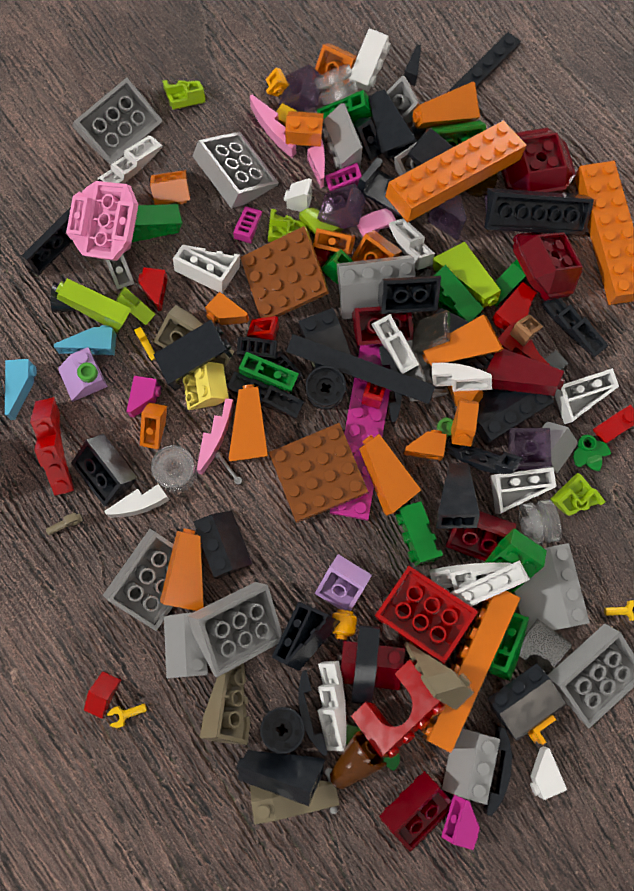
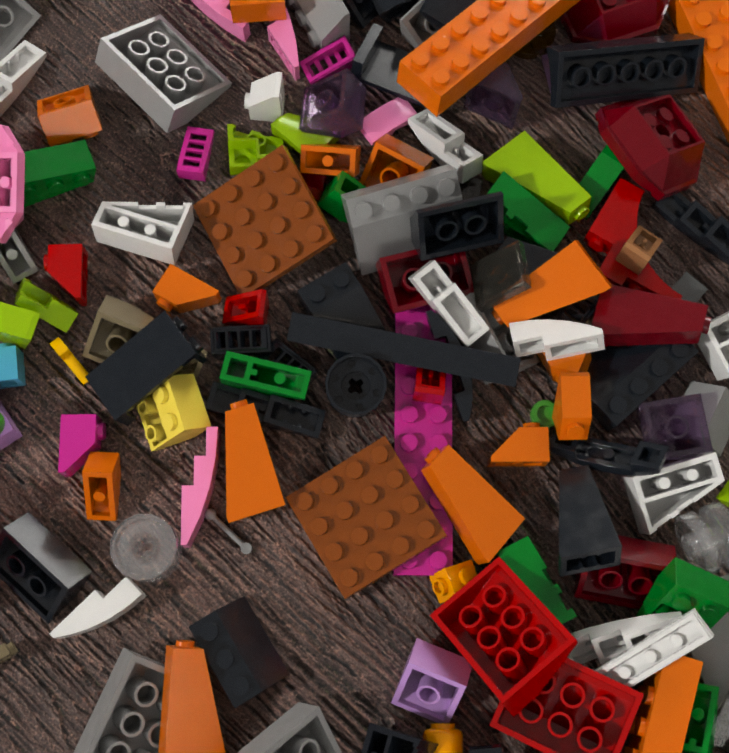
camera: 10 degrees left, 0 degrees up
(369, 523) = (452, 579): none -> light orange bracket
(394, 559) = (505, 634): none -> red slope

